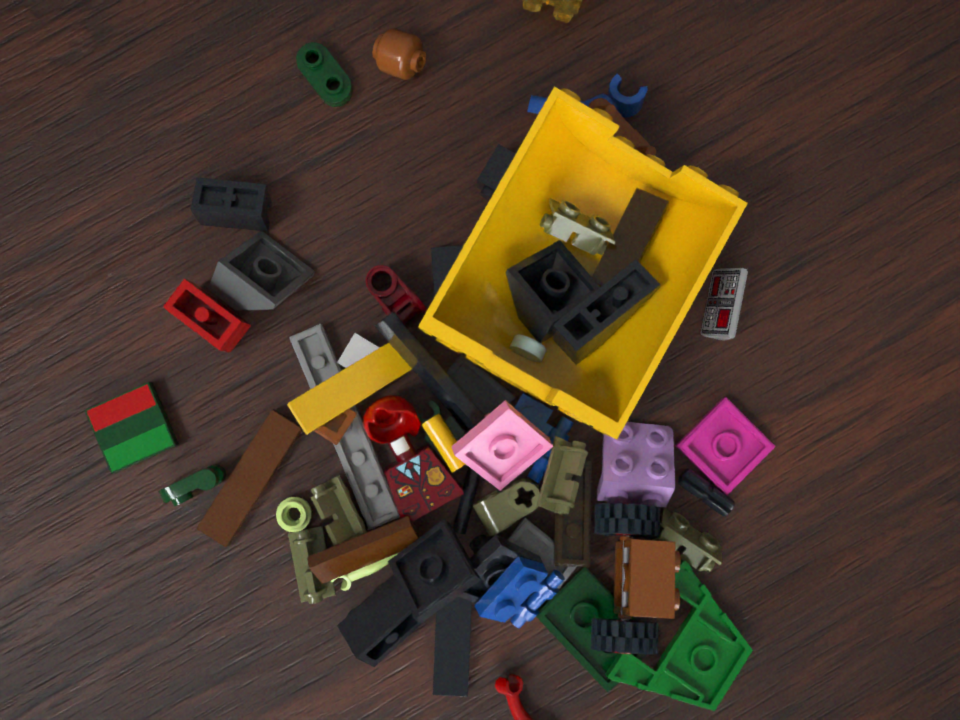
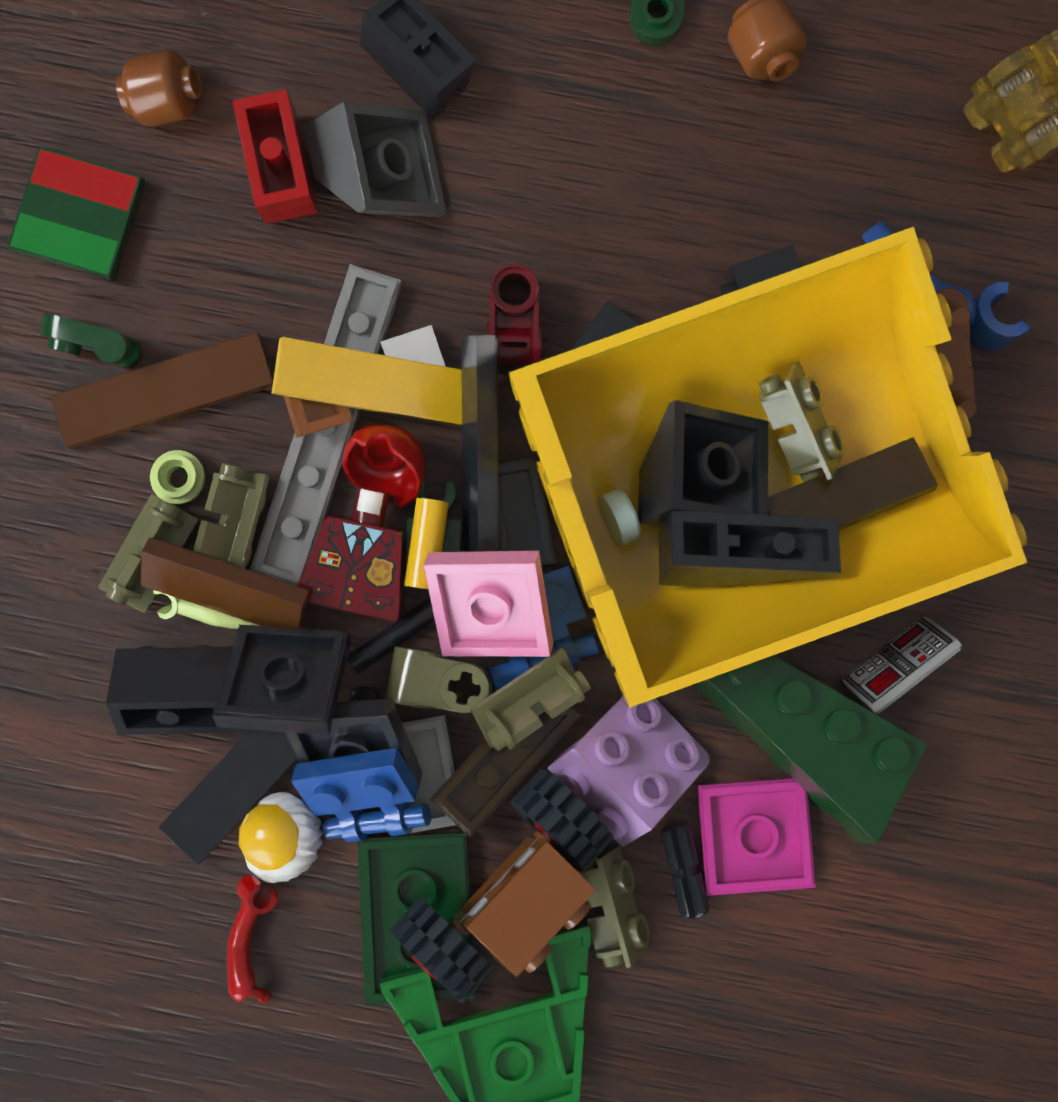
camera: 40 degrees right, 0 degrees up
(119, 331) = (158, 88): none -> dark orange head
(496, 647) = (280, 837): none -> hair
(723, 371) = (826, 742): none -> dark green wedge

